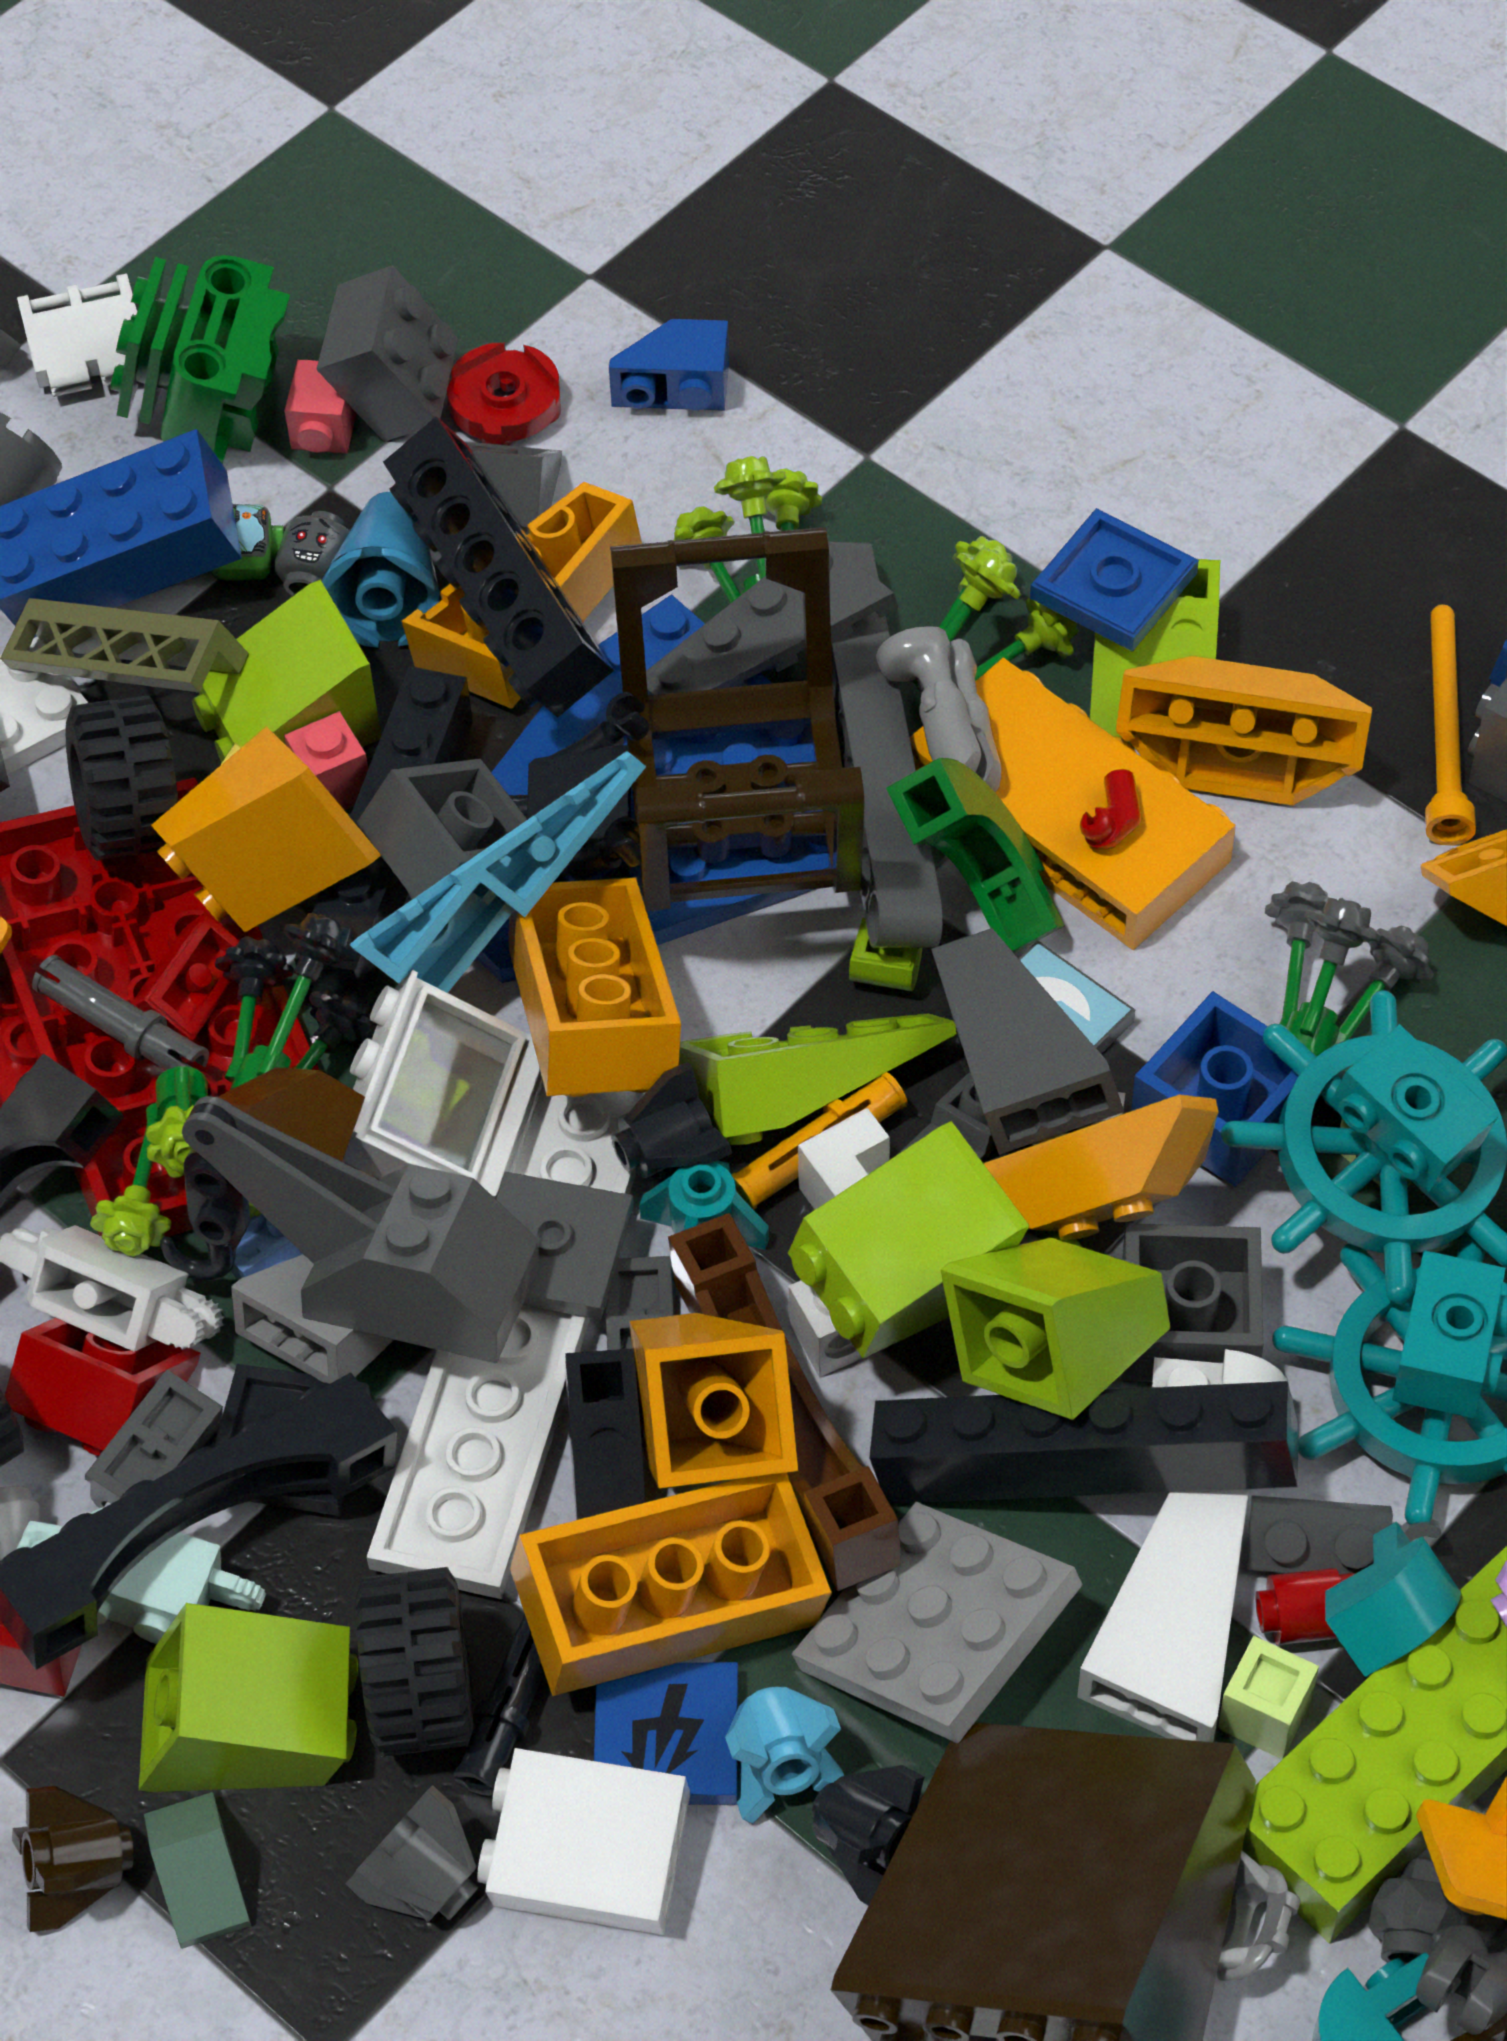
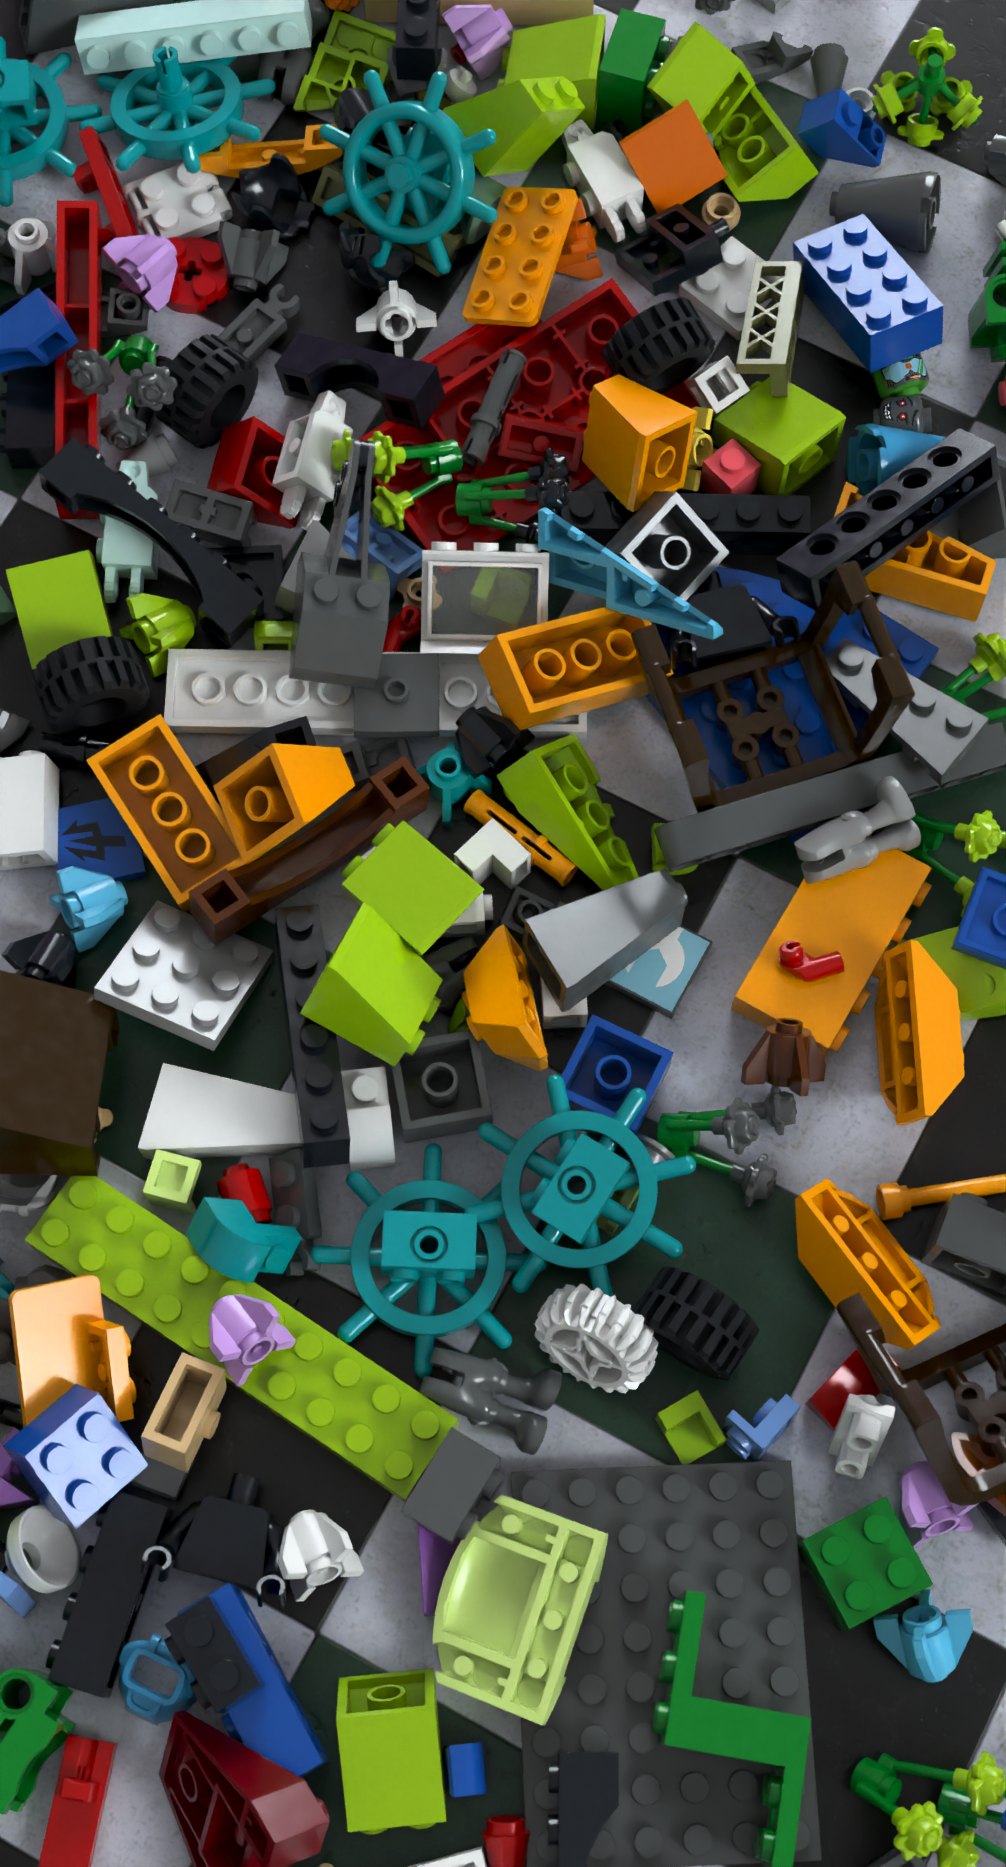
camera: 75 degrees right, 15 degrees up
(199, 733) = (717, 385): none -> white brick
(303, 1106) = (414, 507): reddish brown slope -> none
(326, 1558) = (159, 627): none -> lime brick
(397, 1392) = (273, 635): none -> lime brick
(970, 824) = (764, 883): green arch -> none
(1242, 873) = (785, 1058): none -> reddish brown brick

